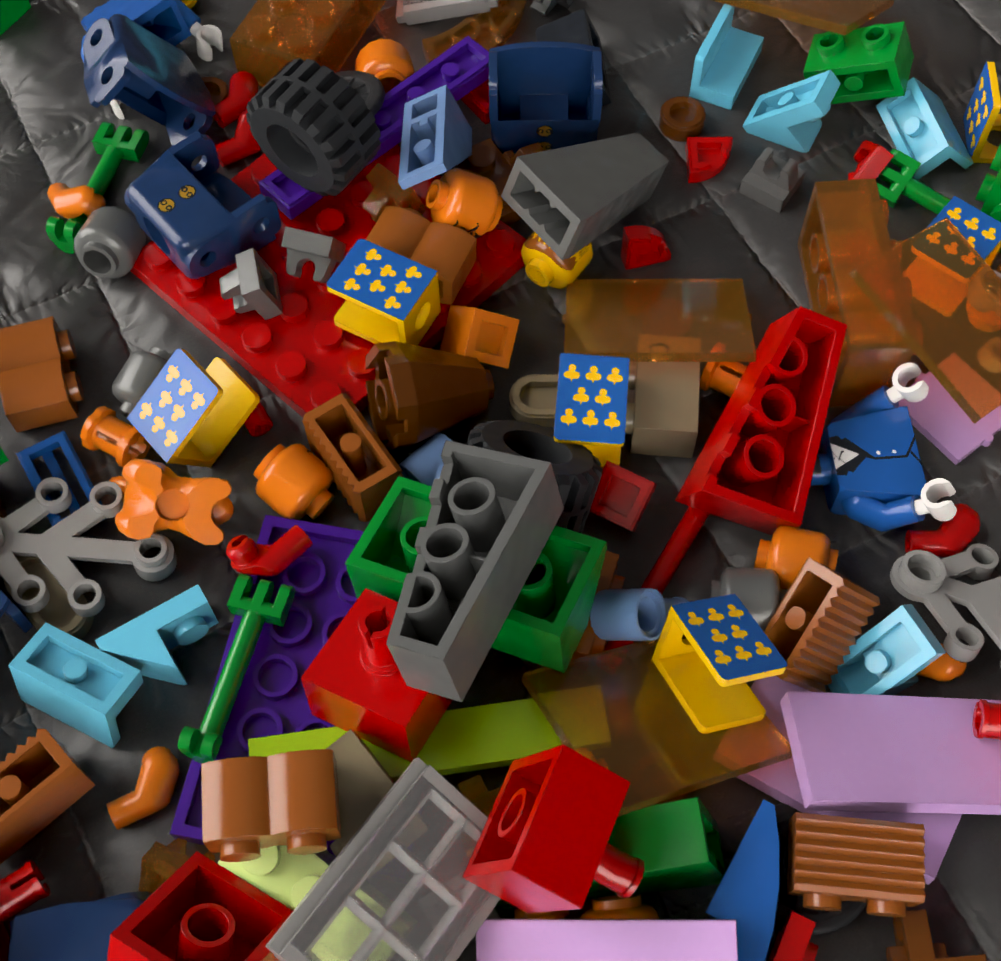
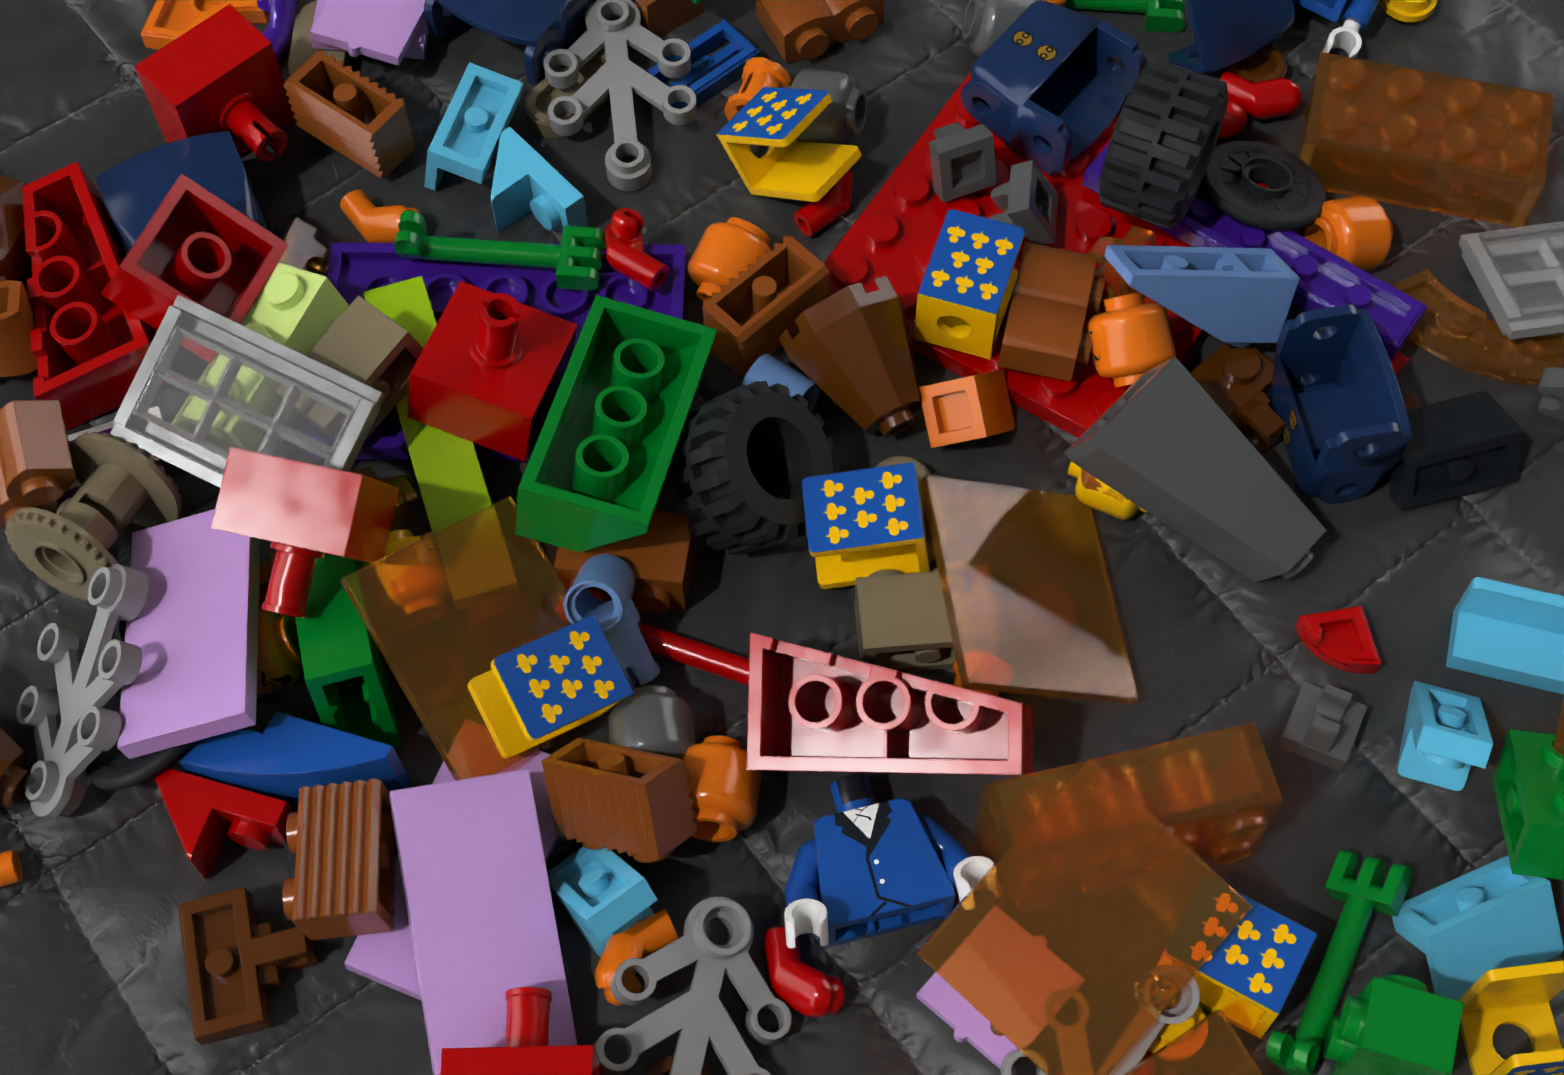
camera: 80 degrees right, 0 degrees up
(163, 500) = (678, 155): orange animal -> none
(270, 803) = (315, 274): dark orange brick -> none
(470, 564) = (573, 379): dark grey wedge -> none
(622, 496) = (780, 592): red tile -> none
(643, 247) = (1155, 574): red tile -> none
(681, 118) = (1400, 601): reddish brown tile -> none
(871, 161) = (1381, 846): red tile -> none

